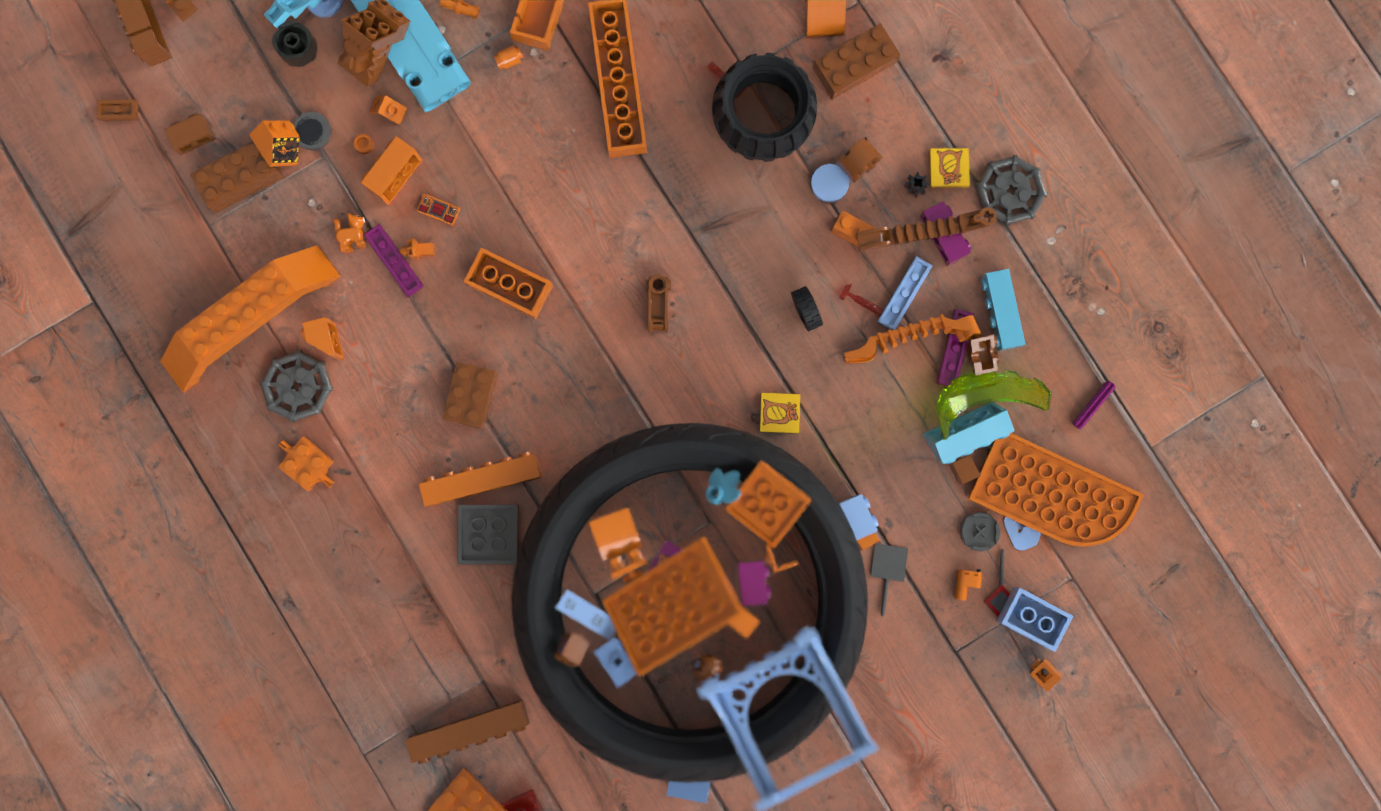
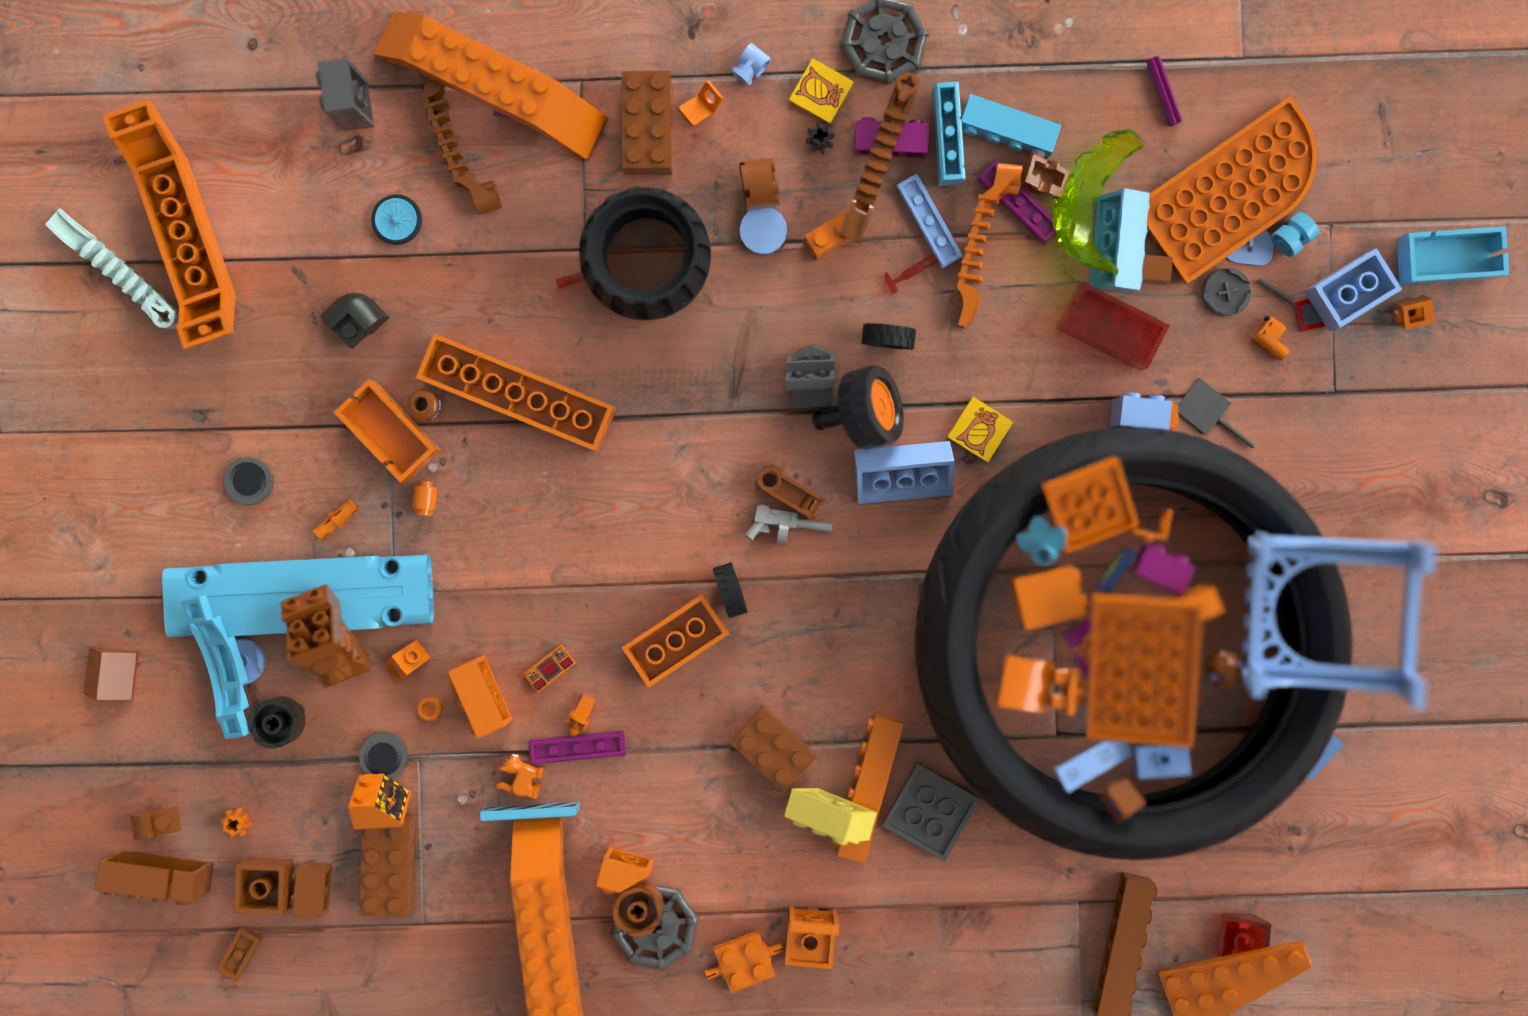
camera: 55 degrees left, 5 degrees up
(174, 98) = (263, 886): none -> dark orange brick
(212, 60) = (229, 825): none -> orange gear
(292, 366) = (629, 918): none -> dark orange brick
(329, 252) = (529, 811): none -> medium azure tile
(360, 495) = (814, 923): none -> orange bracket
(444, 459) = (830, 815): none -> light yellow brick
(564, 300) = (730, 590): none -> black tyre
(573, 20) = (424, 405): none -> dark orange head
(634, 312) = (783, 521): none -> light grey piece
(686, 514) = (1049, 596): none -> orange brick
(718, 376) = (904, 472): none -> light blue slope
(733, 551) = (1116, 570): none -> dark blue tile
(747, 272) = (811, 377): none -> dark grey piece
(747, 321) = (866, 408): none -> black wheel
(889, 92) = (700, 106): none -> orange bracket
(907, 461) = (1112, 326): none -> clear red piece
(940, 109) = (751, 64): none -> light blue piece
(972, 270) = (948, 134): none -> medium azure brick
(1049, 555) = (1291, 237): none -> medium azure wheel
(1101, 676) = (1452, 256): none -> medium azure piece

